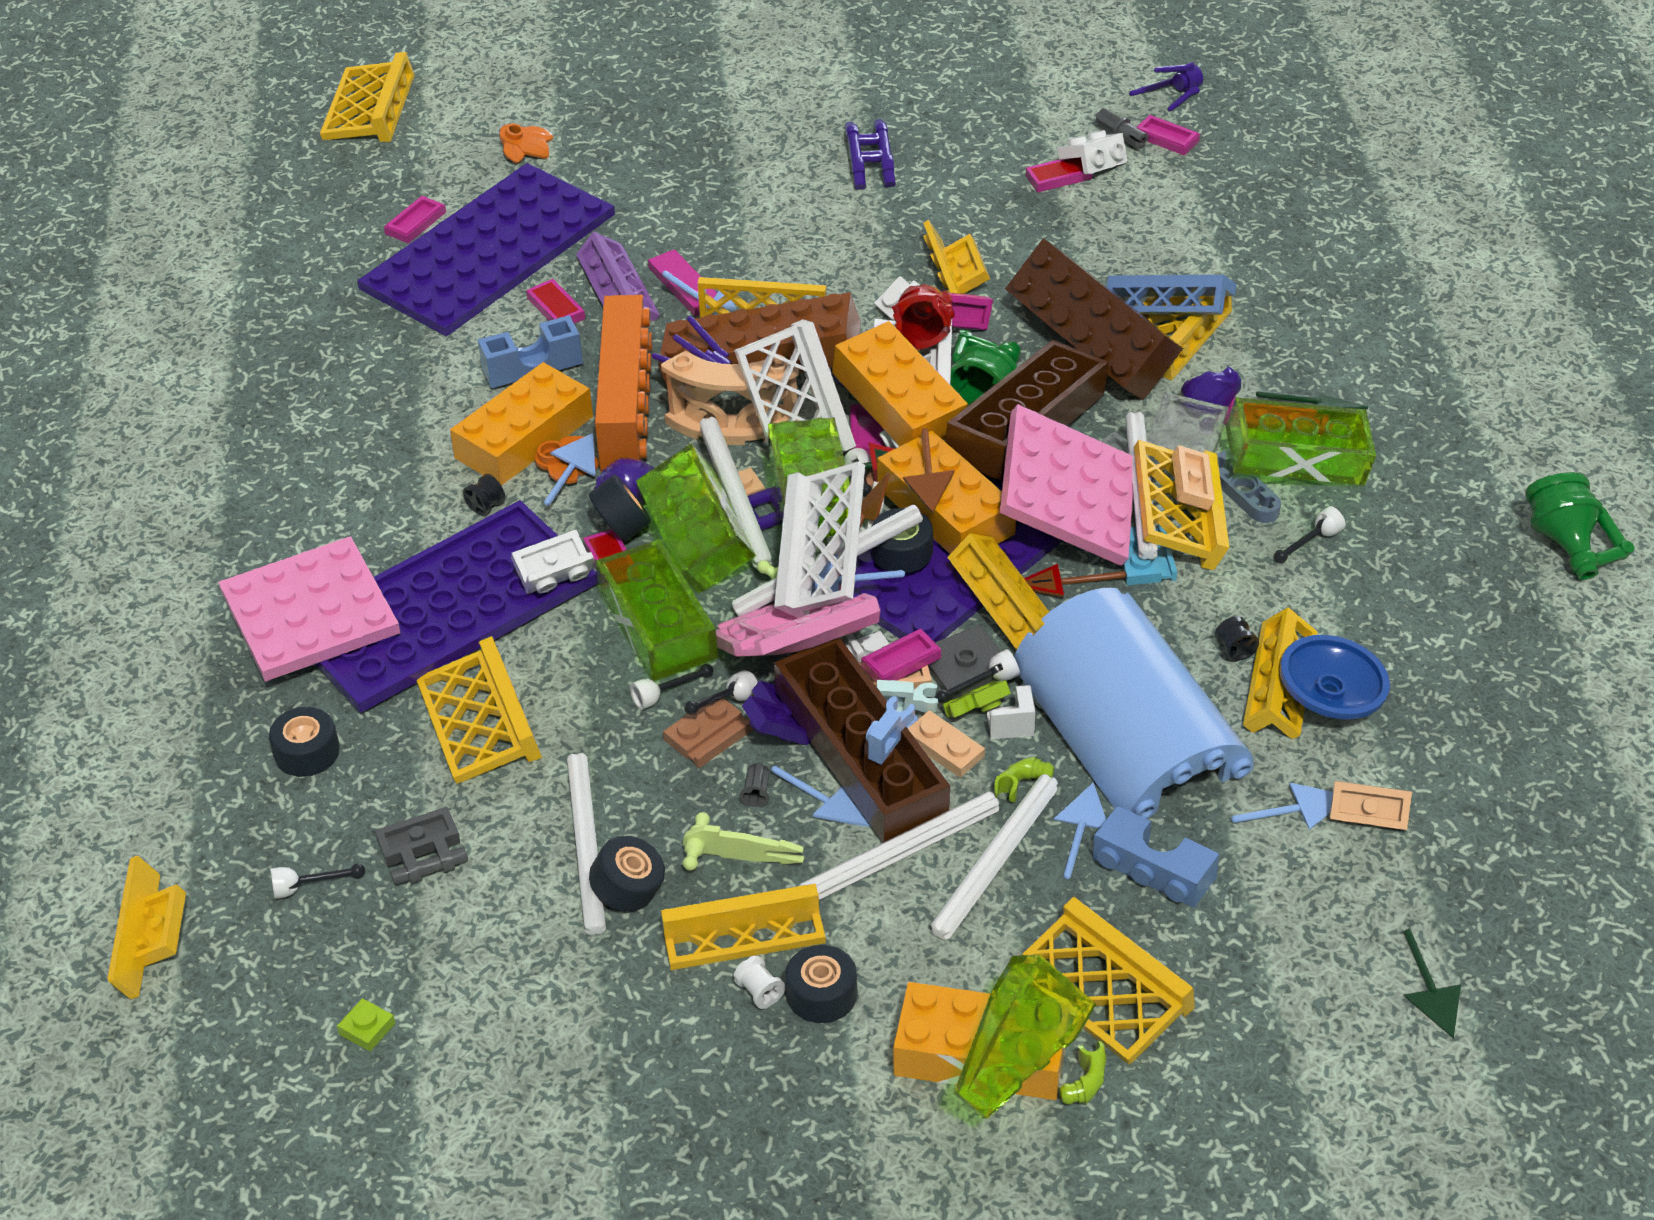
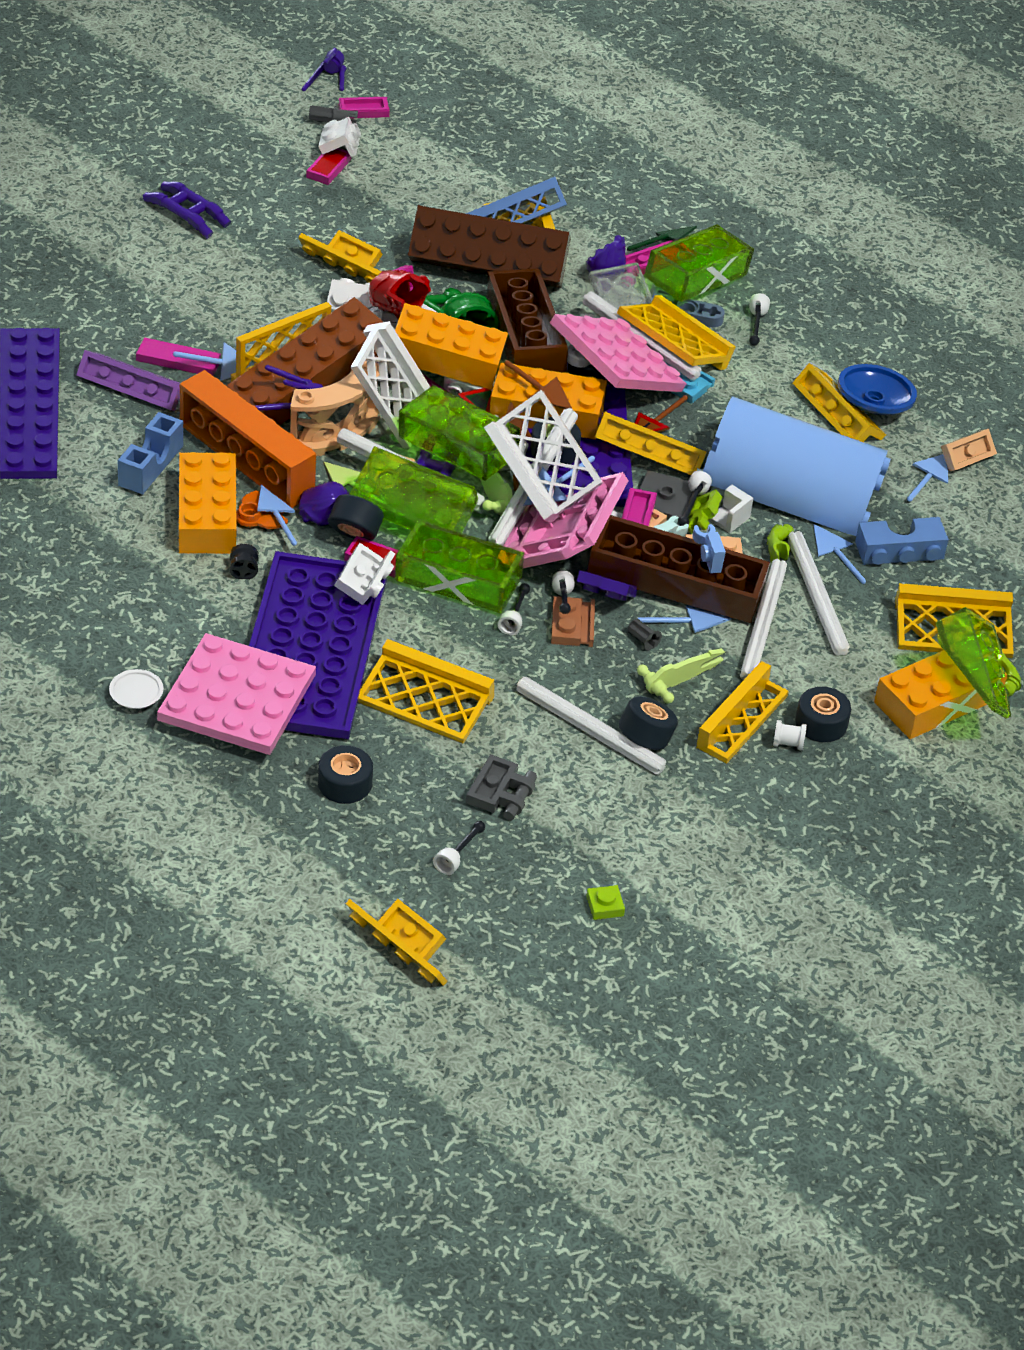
camera: 50 degrees left, 0 degrees up
(247, 553) = (136, 688): none -> white piece
(554, 301) = (109, 416): tile -> none
(1193, 477) = (674, 314): light nougat plate -> none
(1236, 638) = (795, 398): black wheel -> none
(1567, 514) = (883, 234): green piece -> none

